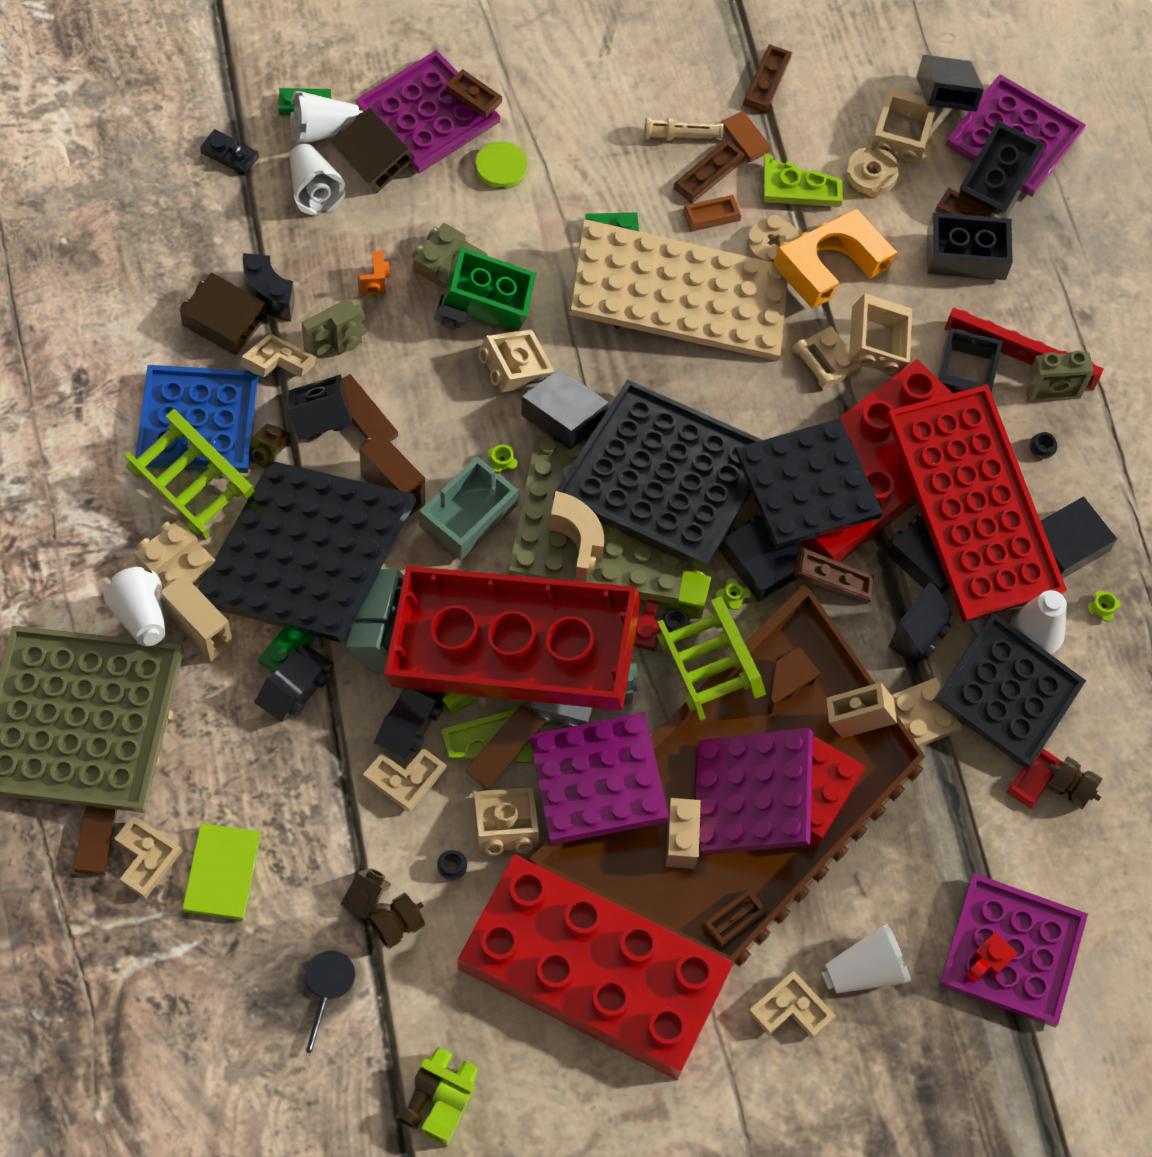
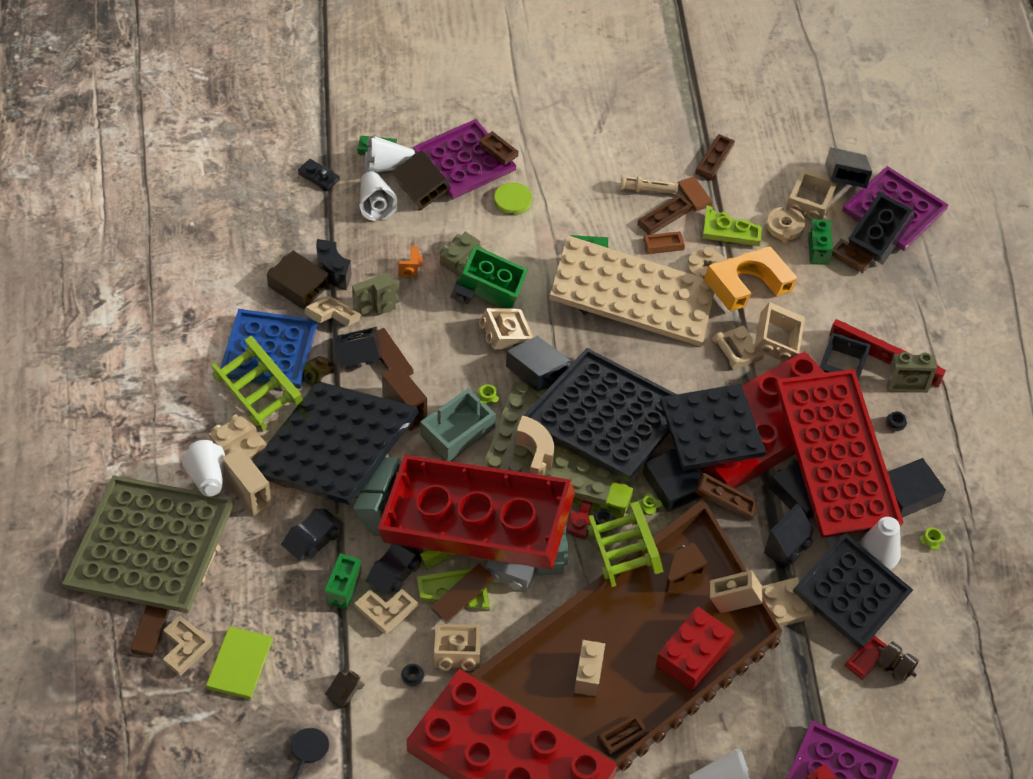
camera: 10 degrees right, 10 degrees down
(282, 646) = (308, 506): green plate -> none
(344, 746) = (343, 581): none -> green hinge
(403, 916) = (360, 711): dark brown wheel -> none
(598, 778) = (530, 621): magenta plate -> none
(755, 791) = (647, 642): magenta plate -> none
(921, 194) = (820, 242): none -> green hinge
(969, 246) = (852, 279): black brick -> none

